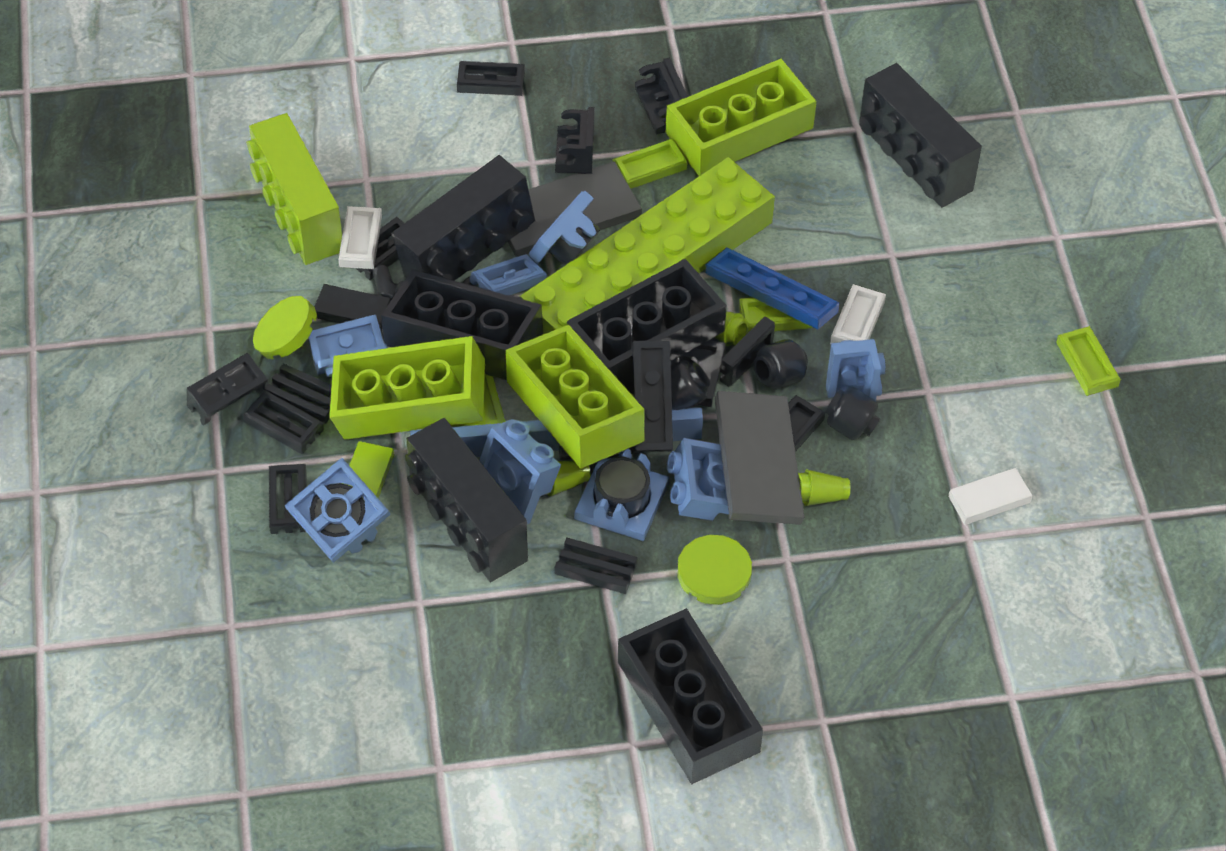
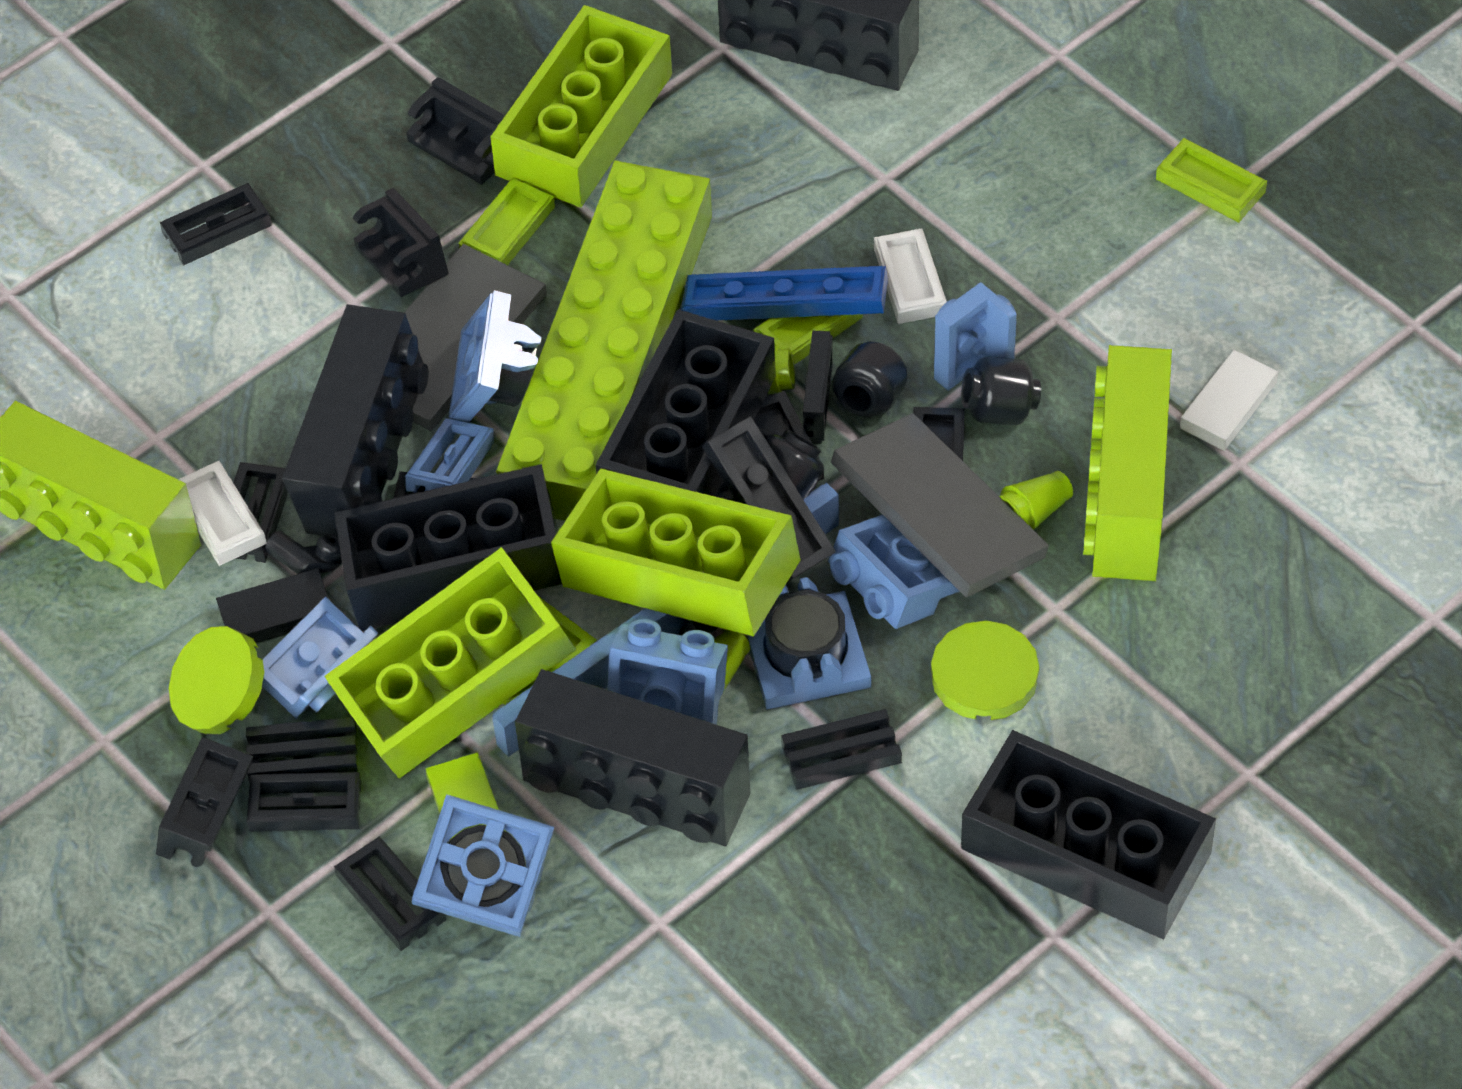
camera: 30 degrees left, 0 degrees up
(889, 496) = (1128, 463): none -> lime brick

